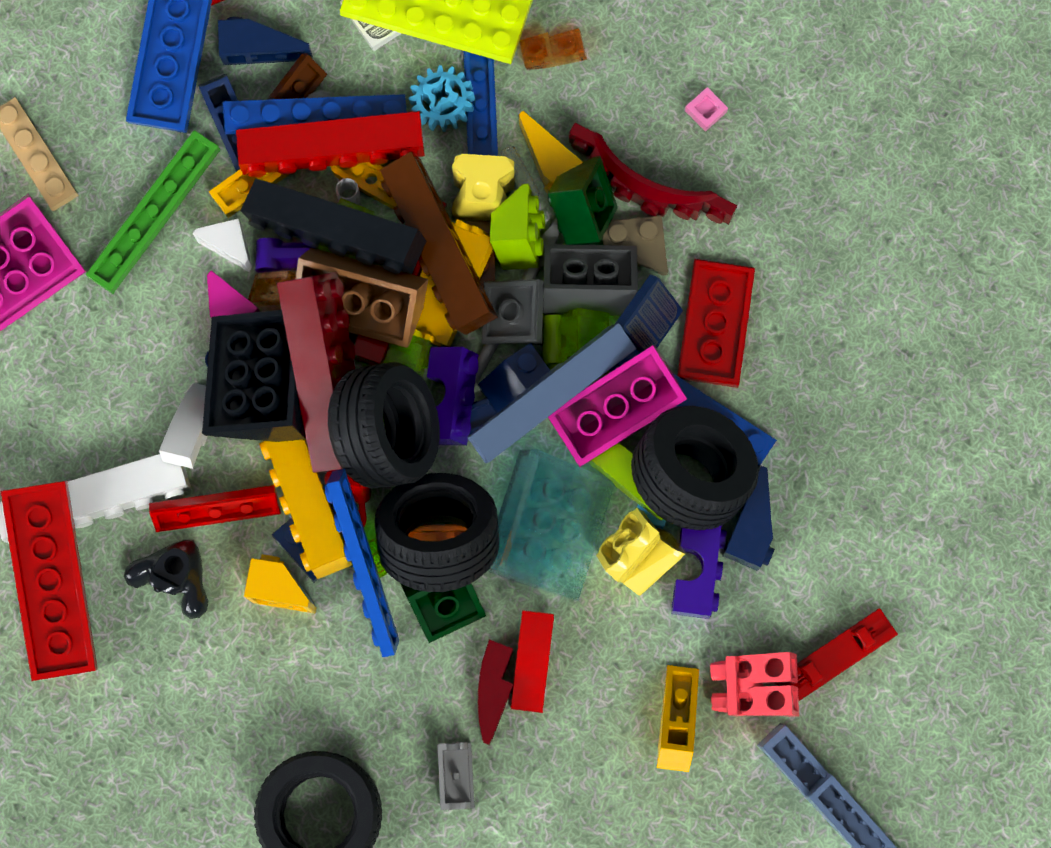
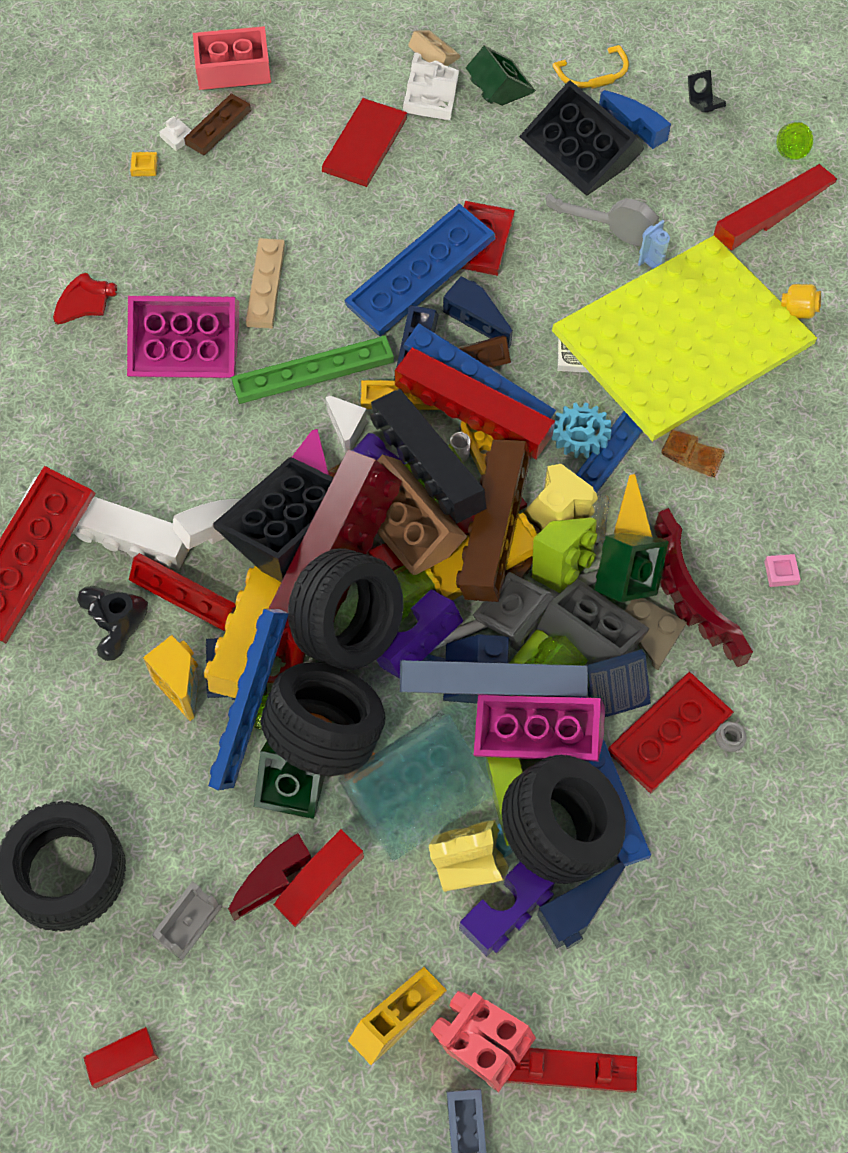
camera: 35 degrees right, 15 degrees down
(767, 282) = (734, 729): none -> light grey plate

